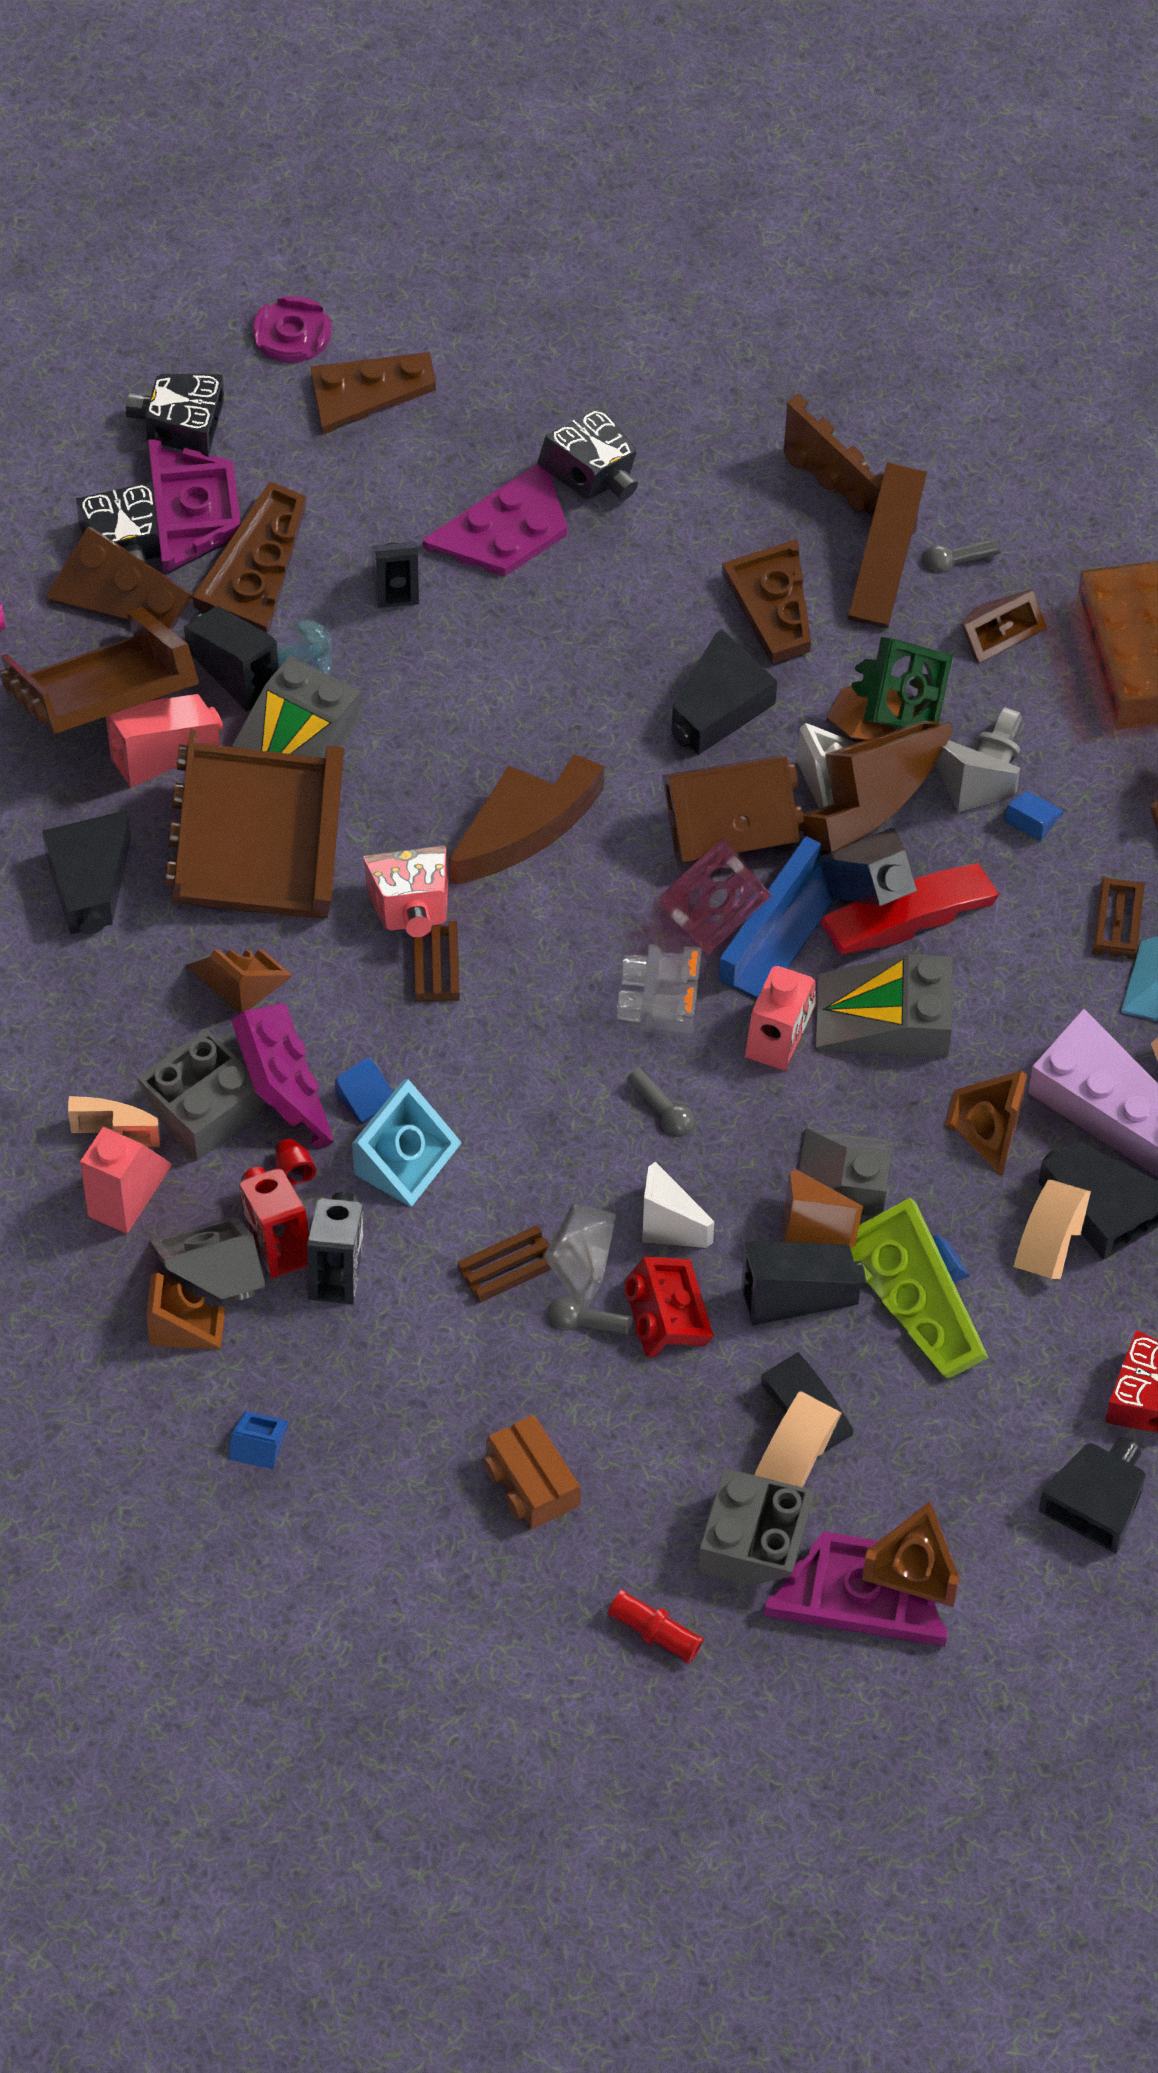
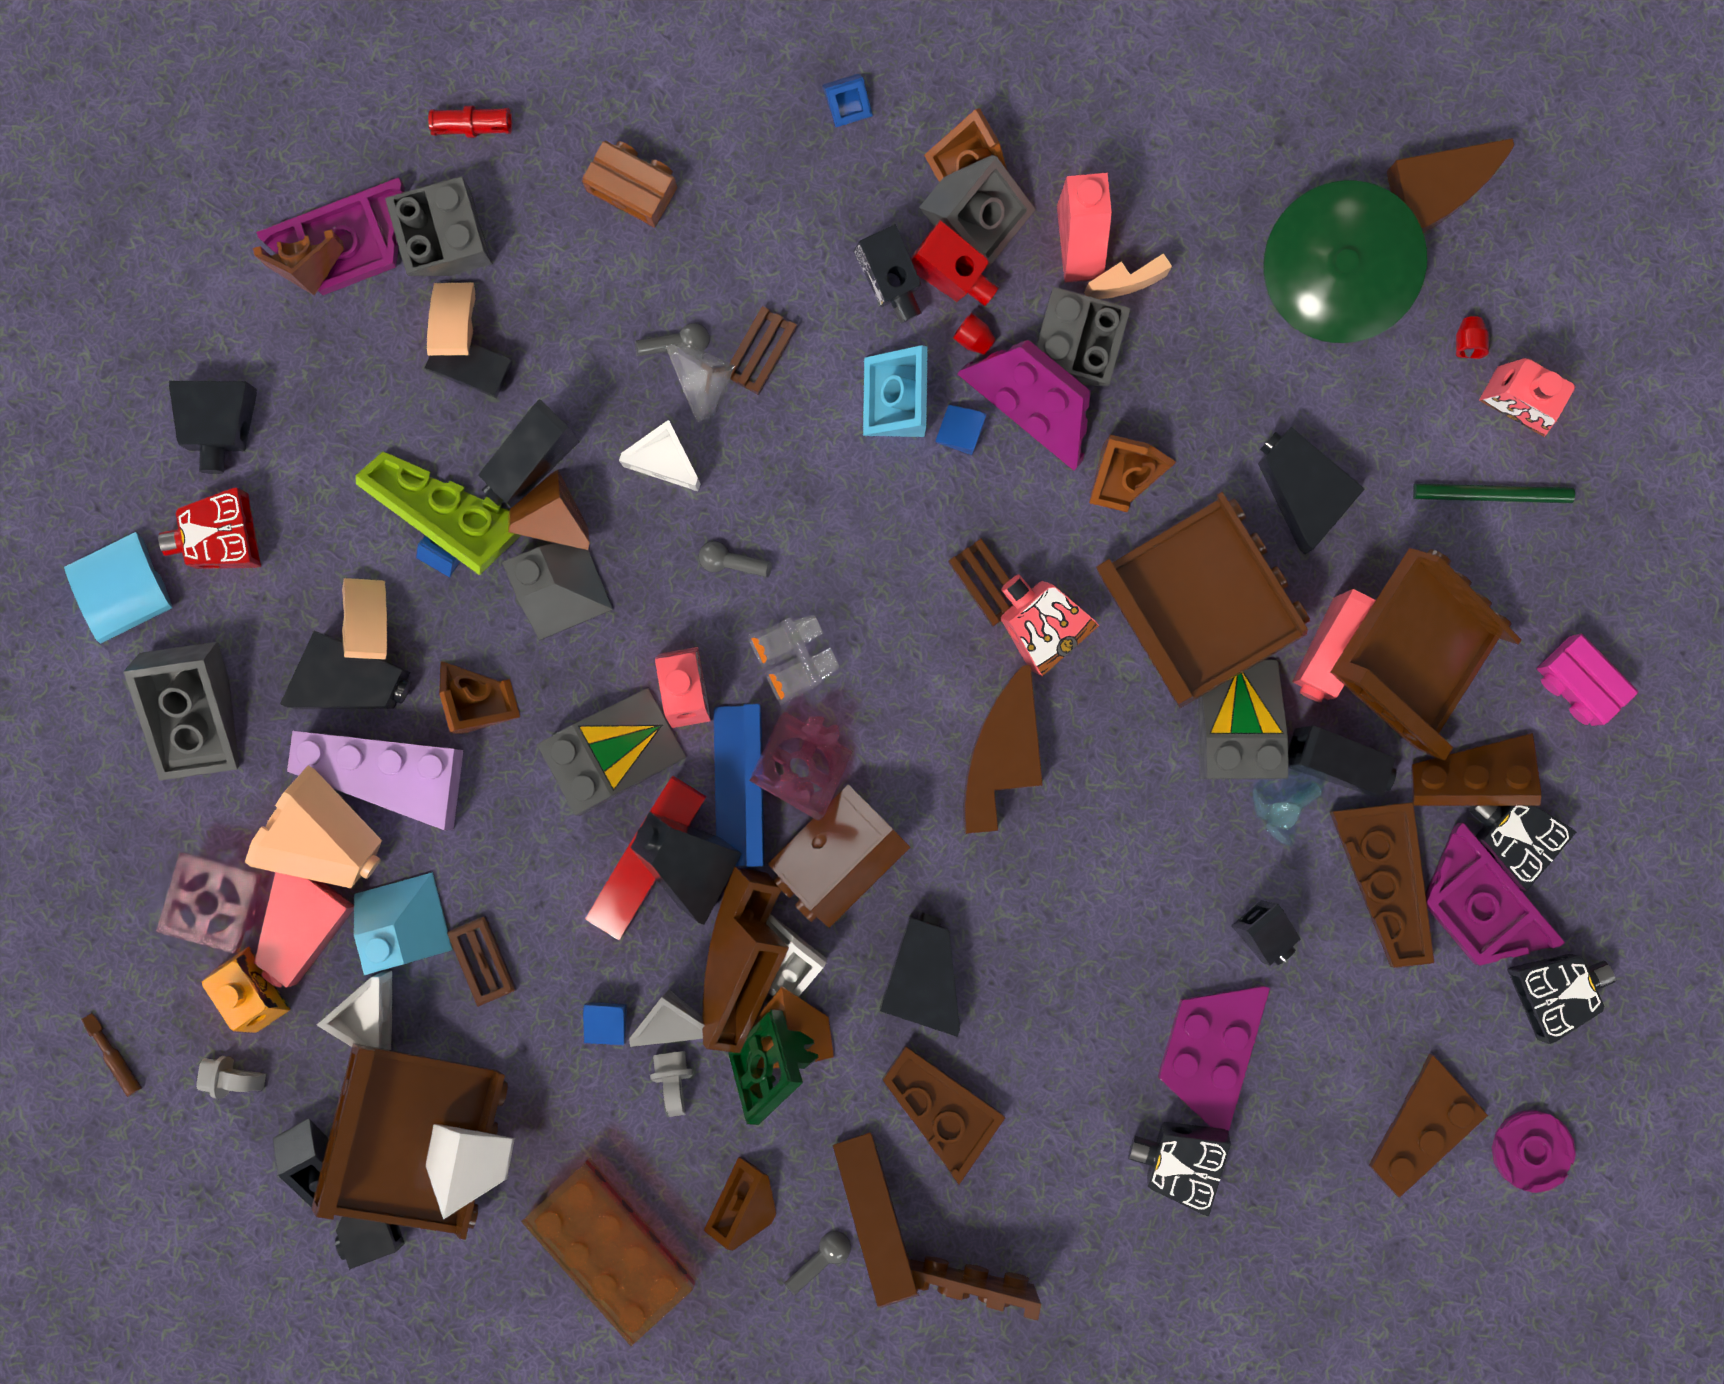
camera: 145 degrees right, 30 degrees up
(667, 1304) = (618, 383): red bracket -> none

